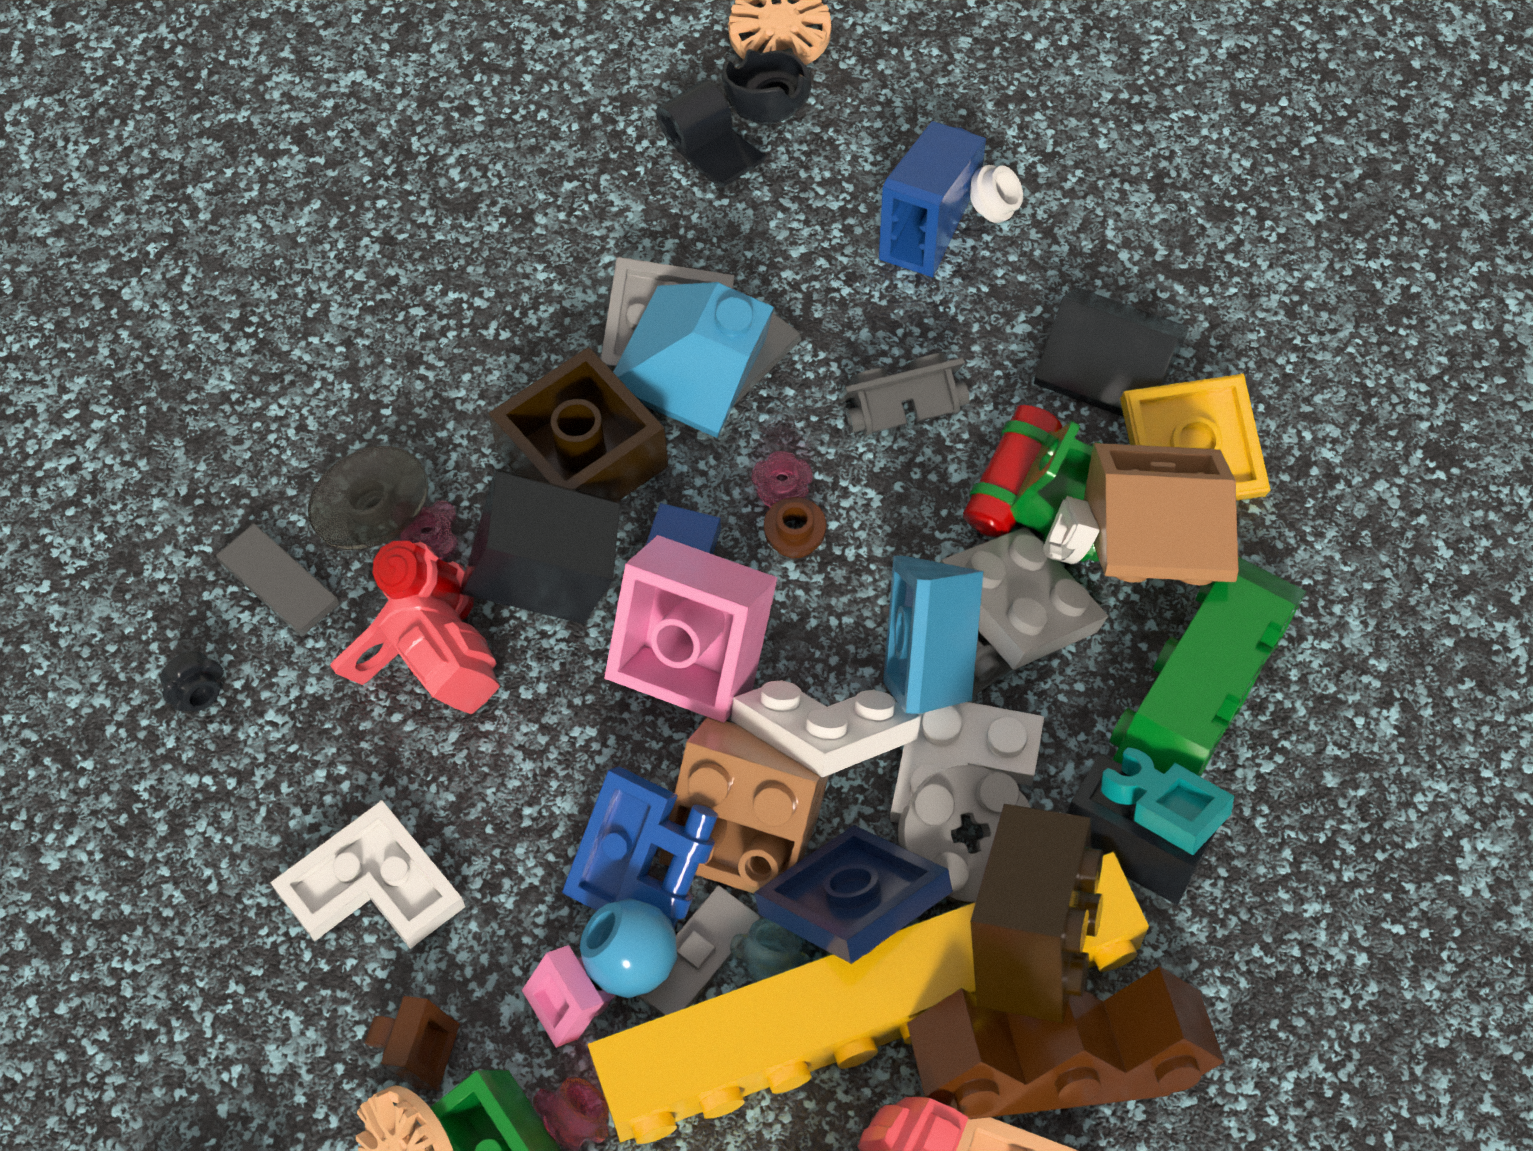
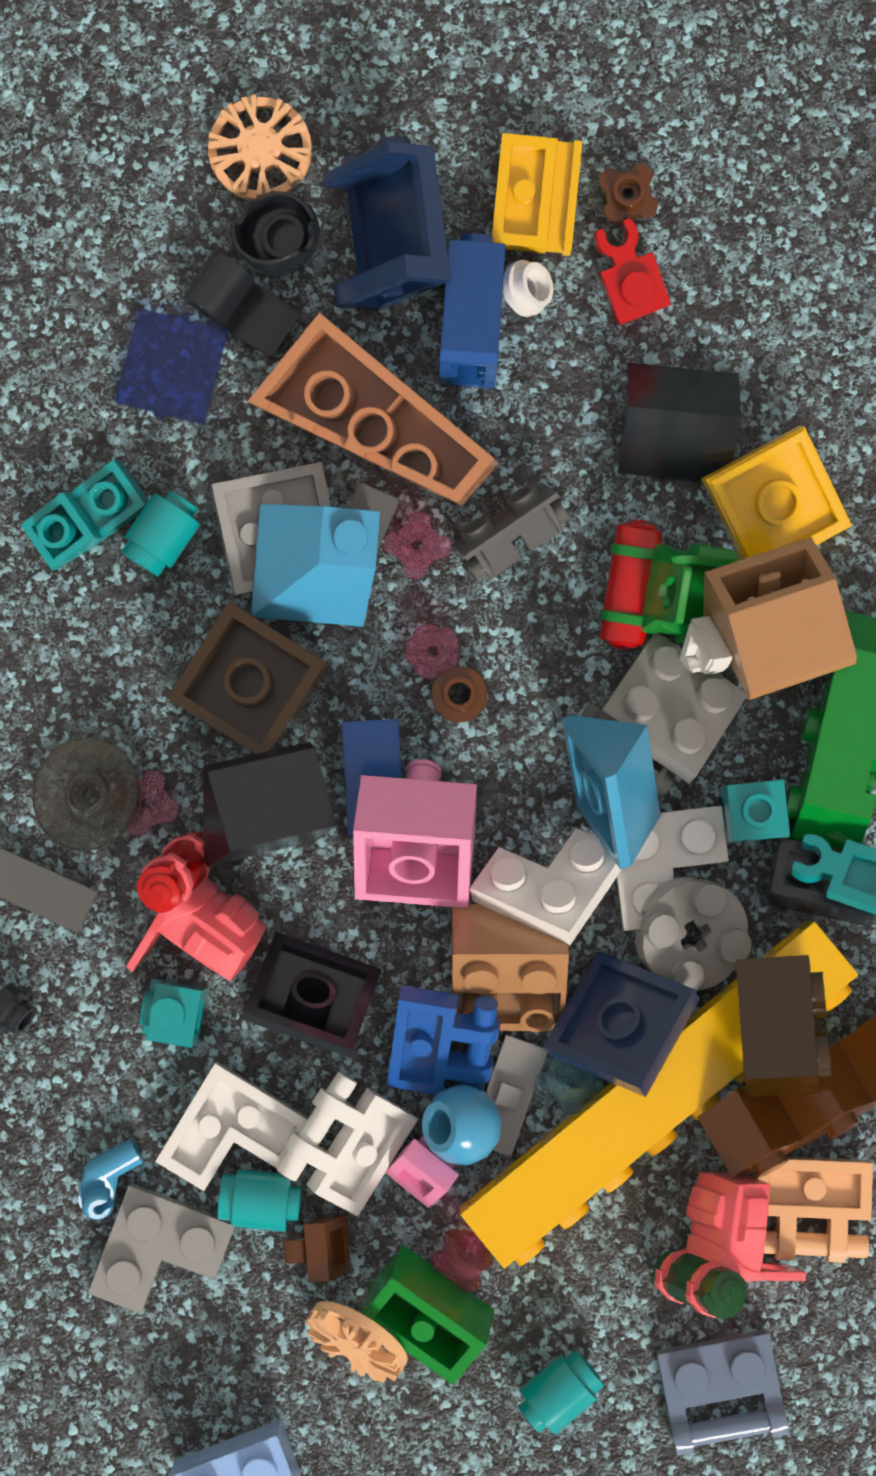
camera: 25 degrees left, 25 degrees up
(207, 888) = (101, 1178): none -> dark azure arm
(226, 969) = (154, 1230): none -> light grey plate
(354, 728) = (173, 1012): none -> teal brick
(366, 965) = (259, 1200): none -> teal brick
(474, 271) = (86, 515): none -> teal slope
(503, 949) = (360, 1151): none -> white plate
(515, 770) = (311, 994): none -> black slope
(549, 294) = (161, 532): none -> teal brick
(622, 173) = (171, 366): none -> clear blue piece
(800, 246) = (362, 407): none -> nougat wedge
(803, 395) = (416, 561): none -> clear pink plate
(886, 94) = (393, 224): none -> dark blue panel
(1033, 122) = (536, 194): none -> yellow plate
(1077, 725) = (754, 811): none -> teal brick
(1101, 217) = (633, 282): none -> red plate
(1123, 148) = (616, 205): none -> reddish brown plate

